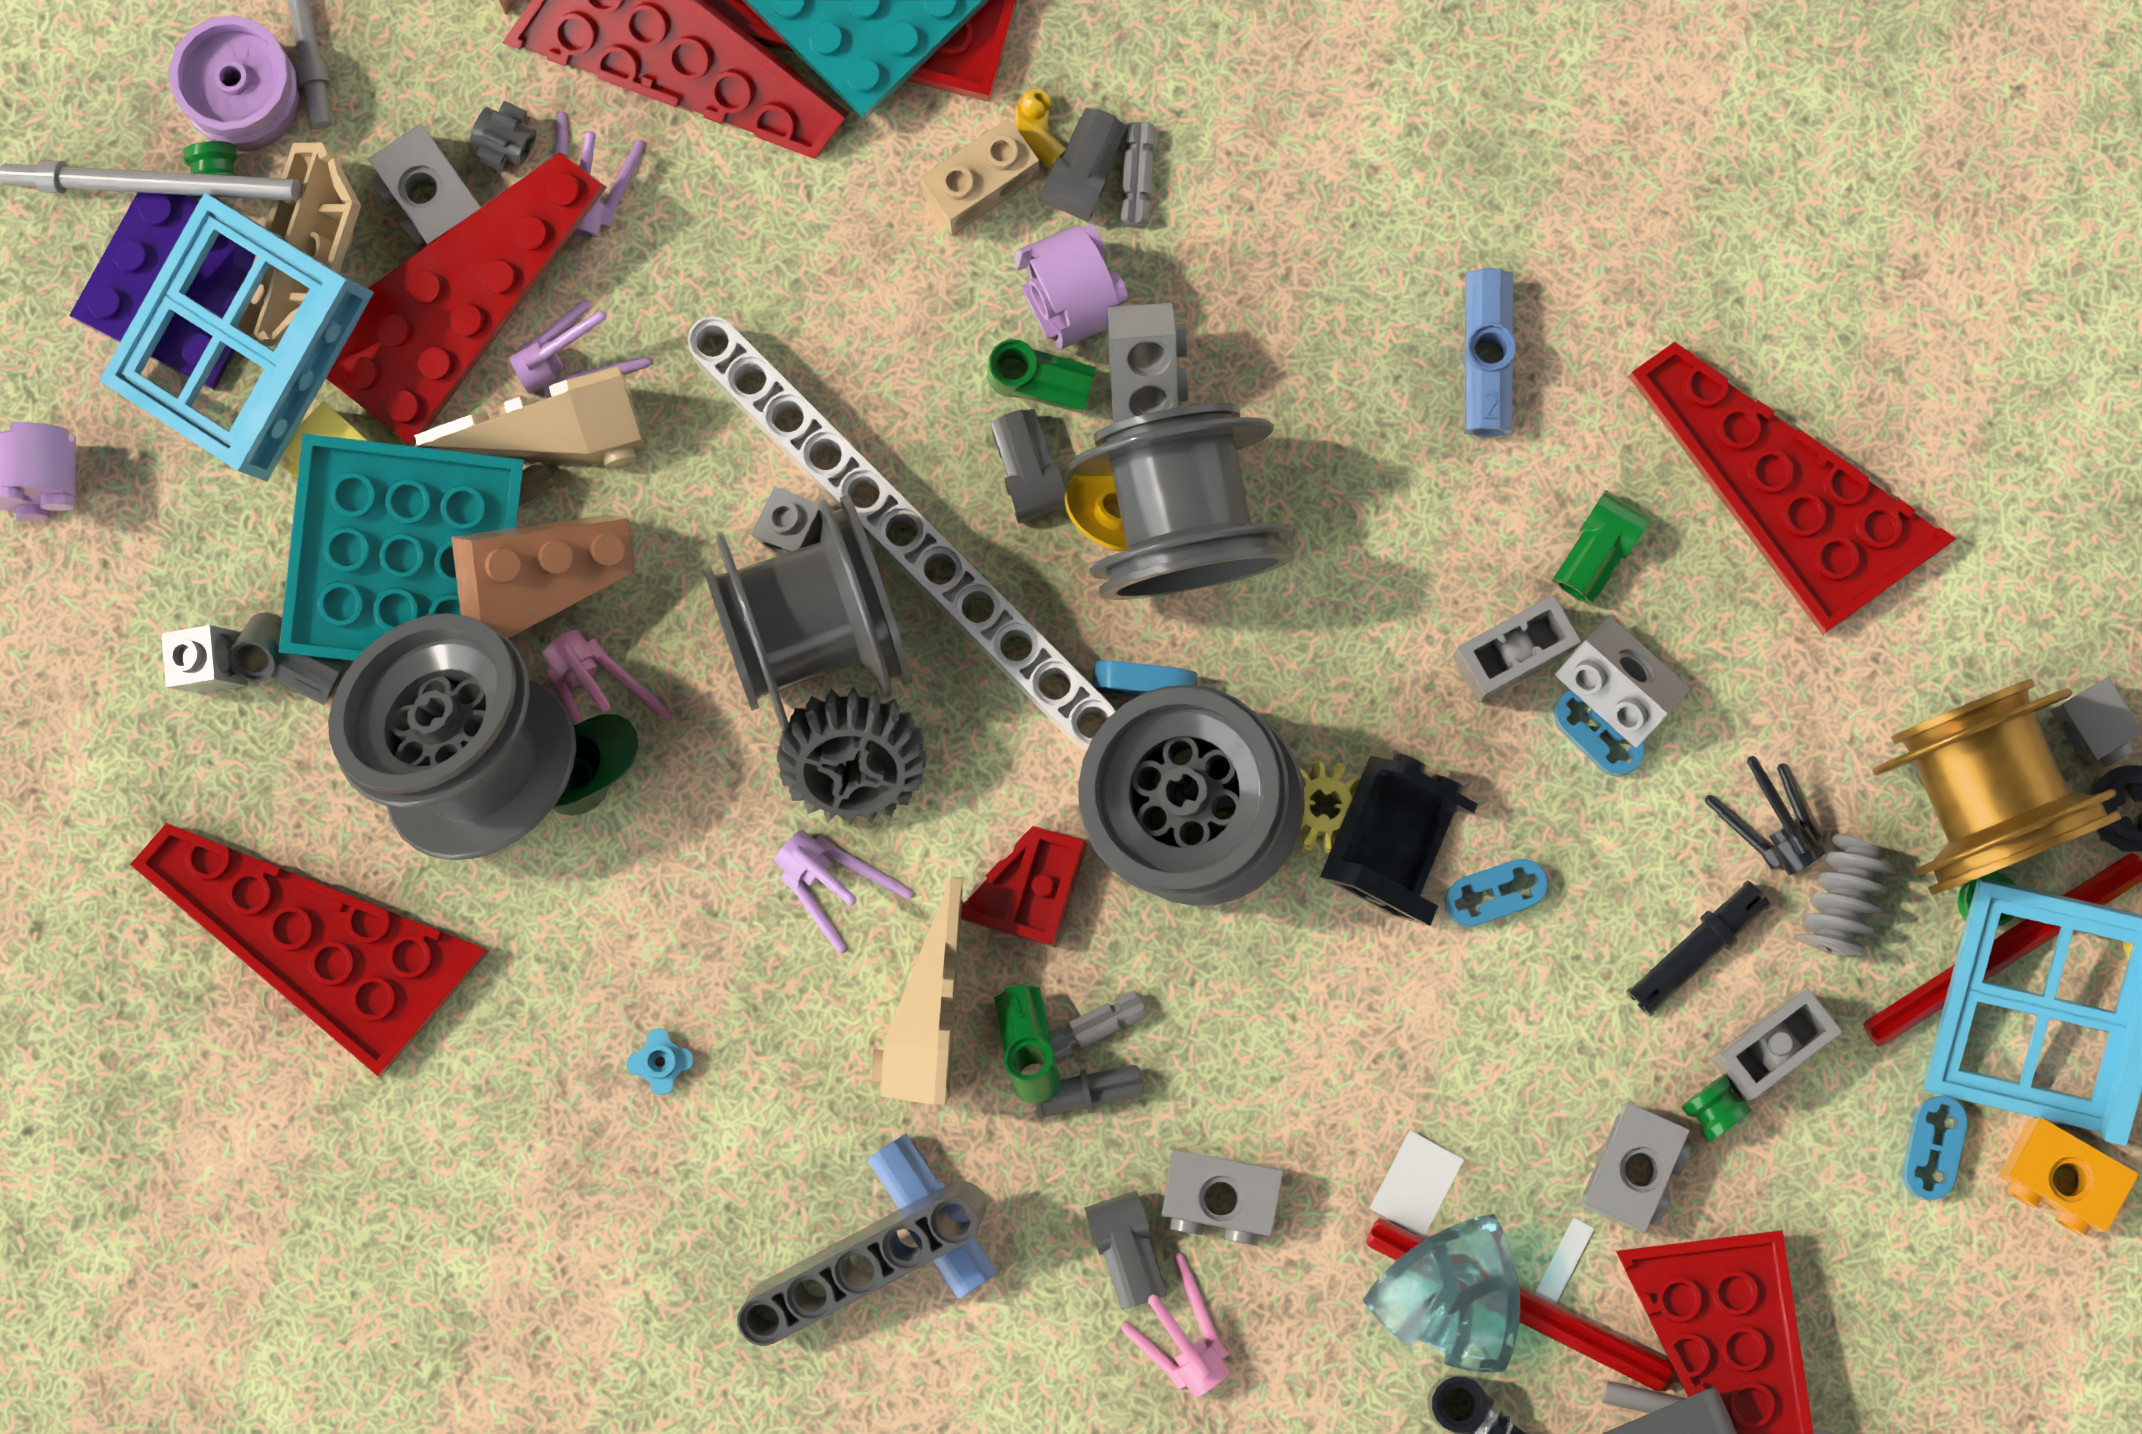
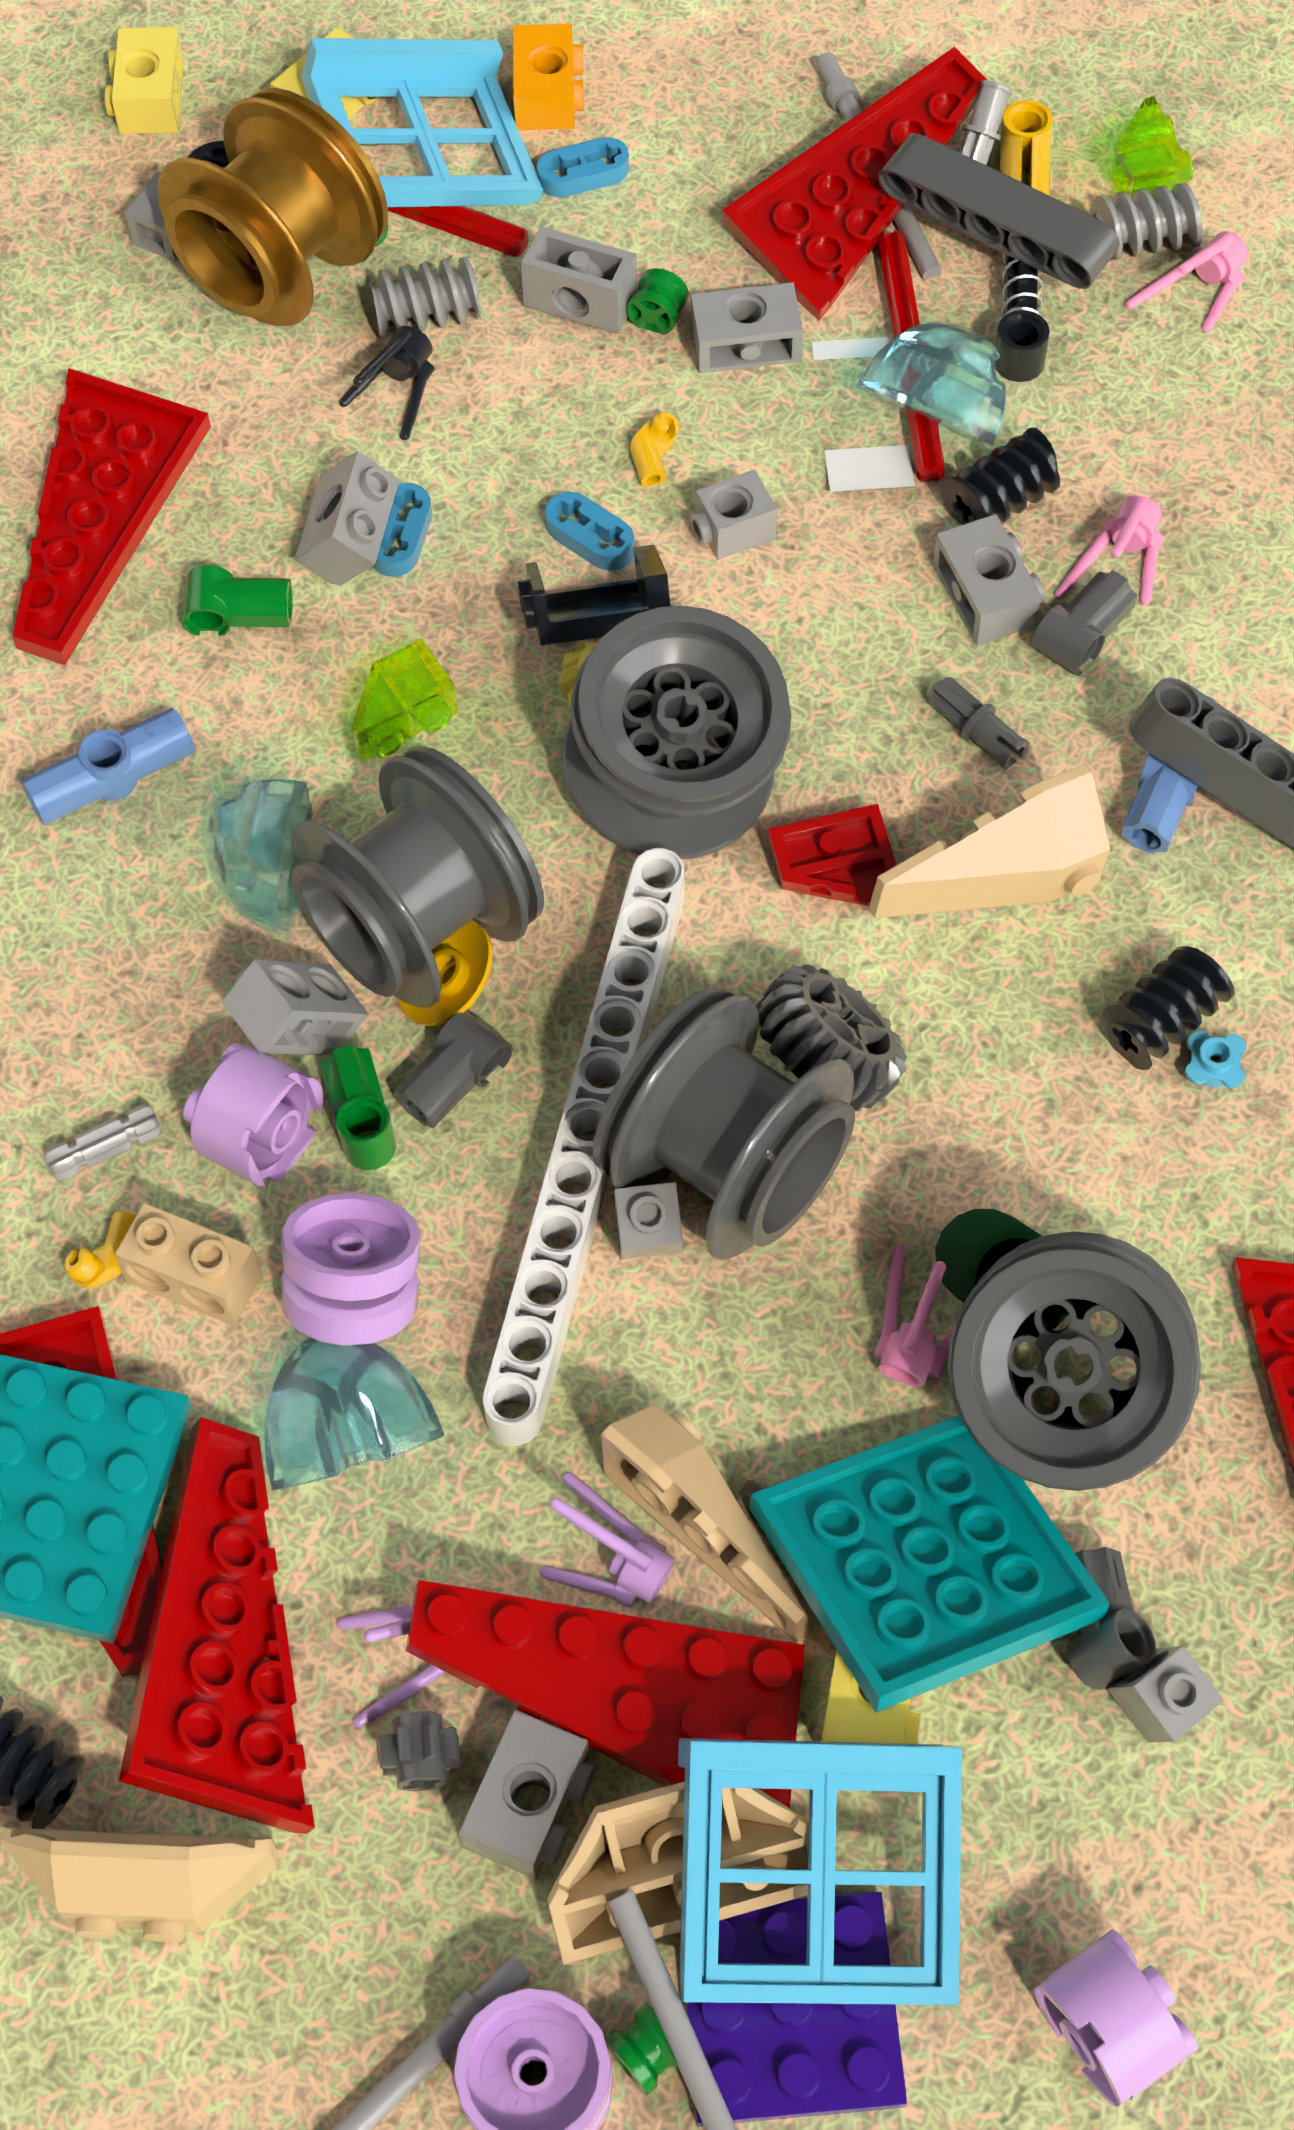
camera: 120 degrees left, 20 degrees down
(538, 570) = (854, 1411): nougat wedge -> none
(723, 1050) = (1165, 1005): none -> black piece
(786, 219) = (340, 1410): none -> clear light blue brick
(807, 862) = (948, 1044): lavender plant -> none
(894, 254) = (350, 1268): none -> lavender wheel
(1027, 1042) = (970, 778): green piece -> none
(1080, 174) = (121, 1185): dark grey piece -> none
(1097, 1024) = (919, 750): light grey axle -> none
(1137, 678) = (590, 868): dark azure beam -> none
(1311, 1278) = (1003, 480): none -> black piece
(1321, 421) = (253, 852): none -> clear light blue brick
(1409, 624) = (401, 699): none -> clear neon green slope
(1412, 1041) = (734, 515): none -> light grey brick
(1516, 648) = (369, 601): light grey brick -> none
(1558, 1003) = (651, 445): none -> yellow arm
(1698, 948) = (522, 373): black pin -> none

